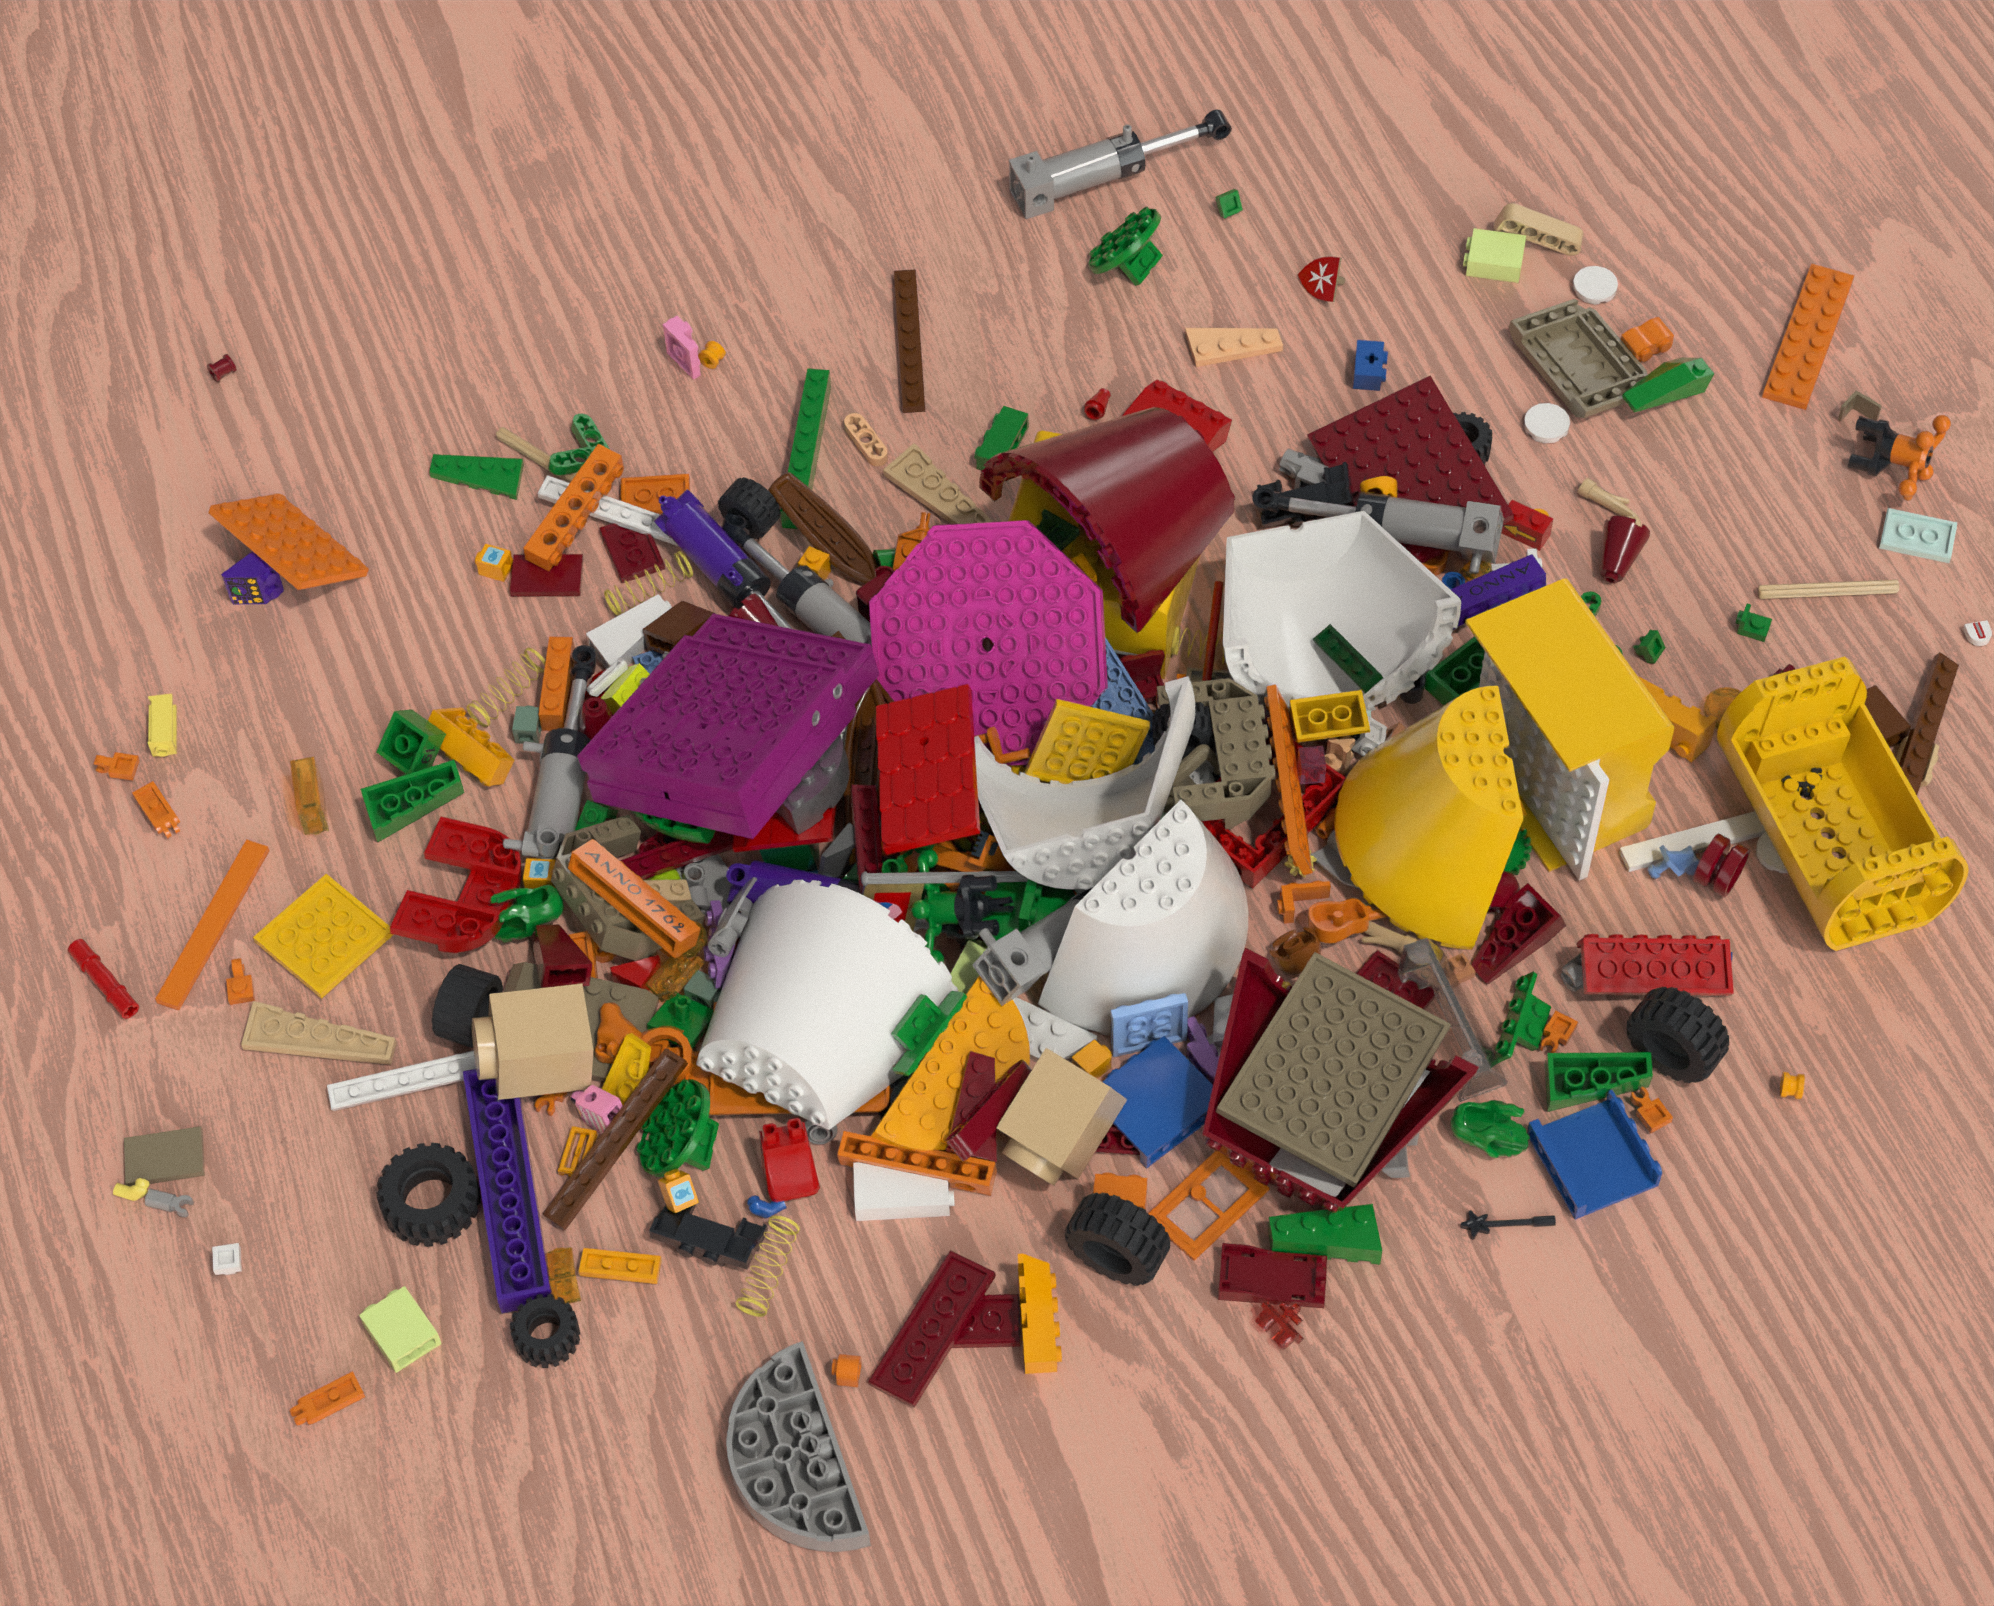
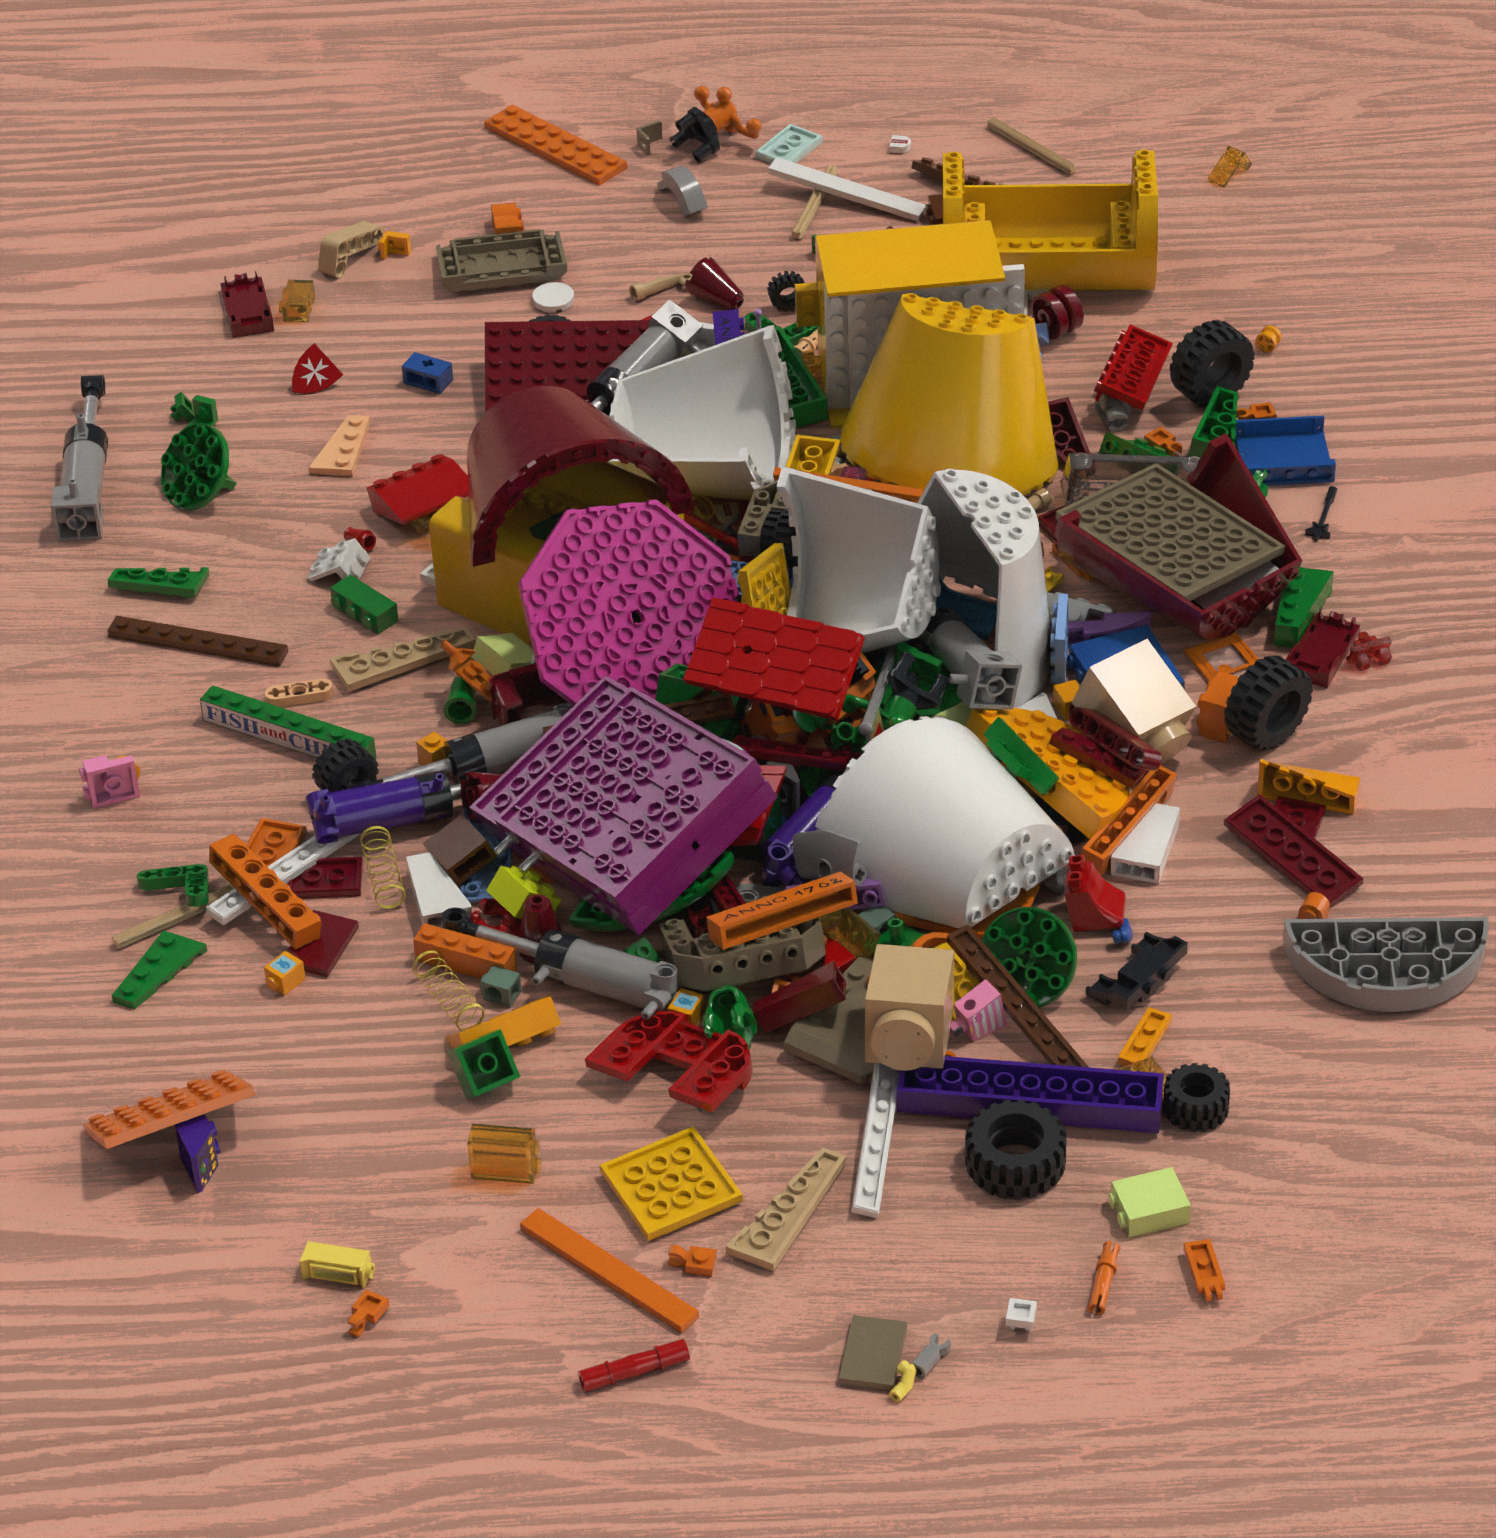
camera: 70 degrees left, 15 degrees down
(156, 809) = (443, 1288): orange hinge -> none
(308, 1315) = (1105, 1268): none -> orange pin
(410, 797) = (546, 1091): green wedge -> none
(461, 998) = (825, 1072): black tyre -> none
(563, 1169) = (1005, 1050): light orange tile -> none
(607, 677) = (488, 905): white tile -> none
(677, 1190) = (1096, 968): light orange brick -> none
(746, 1310) = (1143, 928): light yellow piece -> none
(824, 528) = (403, 727): reddish brown piece -> none
(976, 283) = (180, 583): none -> green wing
(1053, 404) = (344, 559): none -> white bracket
(1210, 225) = (204, 411): none -> green bracket
(1347, 658) = (758, 443): dark green tile -> none
(1380, 485) = (584, 378): light orange hair -> none
(1410, 192) = (247, 305): none -> dark red piece
(1432, 225) = (297, 301): none -> clear yellow brick
(1494, 255) = (357, 275): yellowish green brick -> none
(1561, 261) = (394, 243): none -> light orange bracket
(1595, 285) = (425, 234): white tile -> none
(1640, 612) = (778, 285): none -> black tyre
(1669, 383) = (560, 216): green wedge -> none
(1770, 465) = (685, 188): none -> light grey arch
(1857, 601) = (846, 189): none -> white tile

